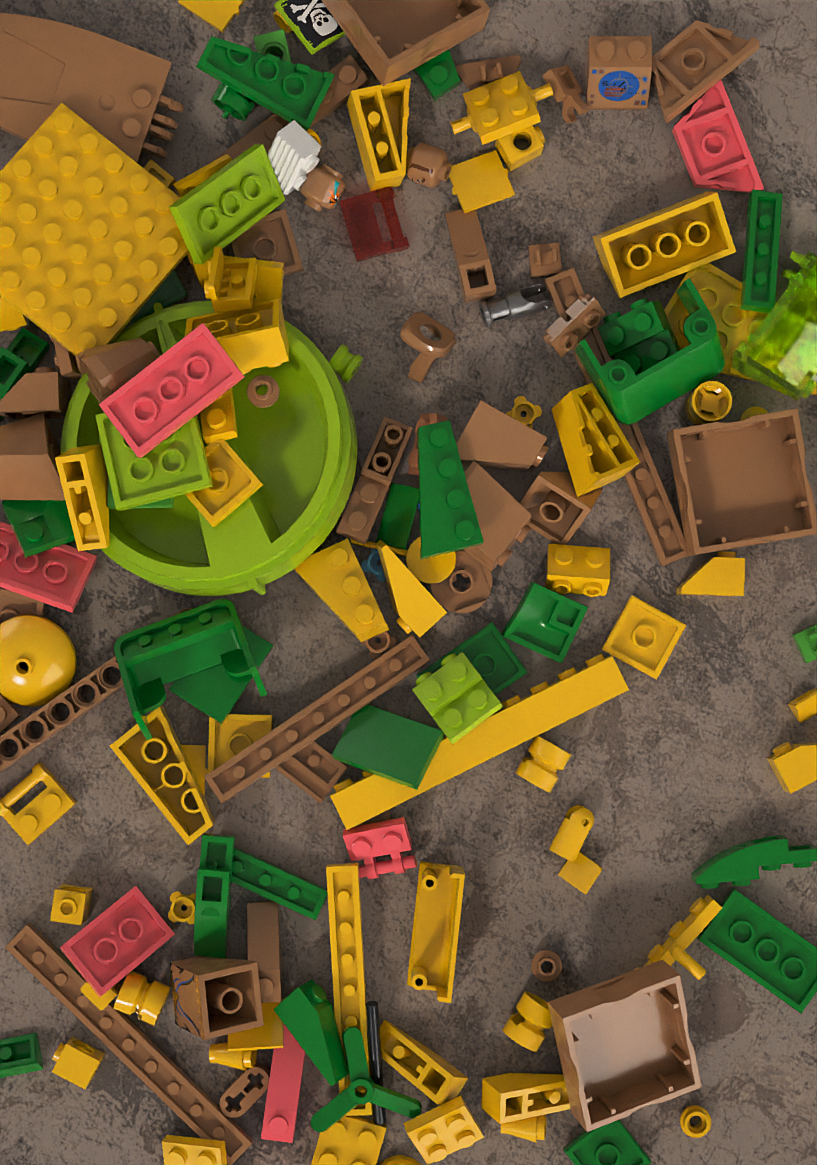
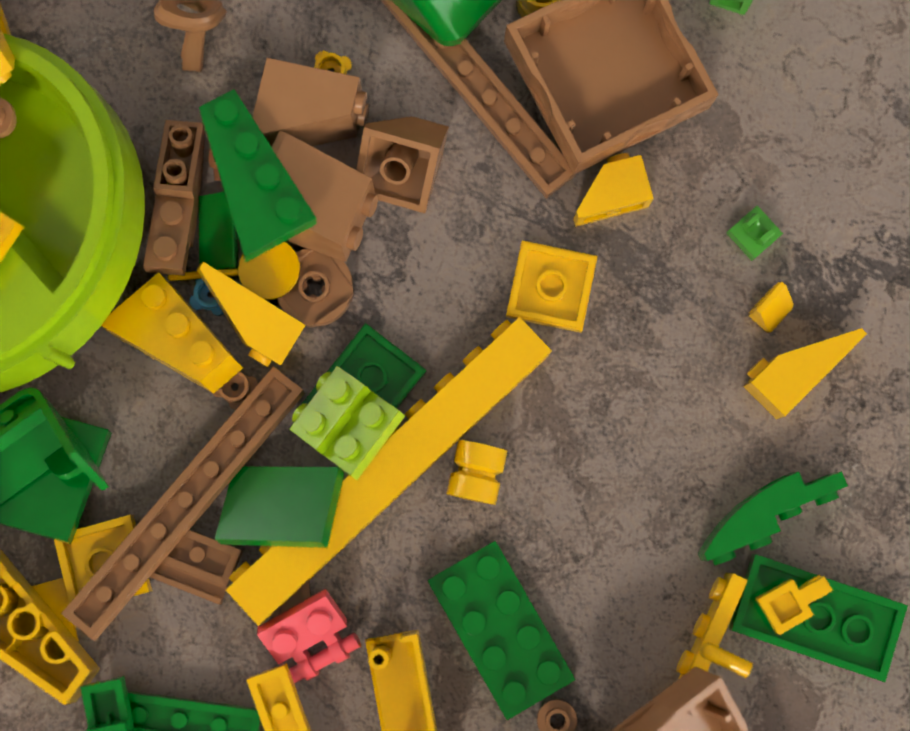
camera: 20 degrees left, 5 degrees down
(345, 363) = (102, 72): lime wheel -> none
(524, 885) = (501, 630): none -> green plate
(545, 622) = (428, 303): green plate -> none
(572, 832) = (538, 545): yellow piece -> none
(578, 570) = (449, 232): yellow bracket -> none
(581, 872) = (562, 591): yellow slope -> none
(591, 440) = (417, 72): yellow wedge -> none
(747, 936) = (788, 605): none -> yellow plate

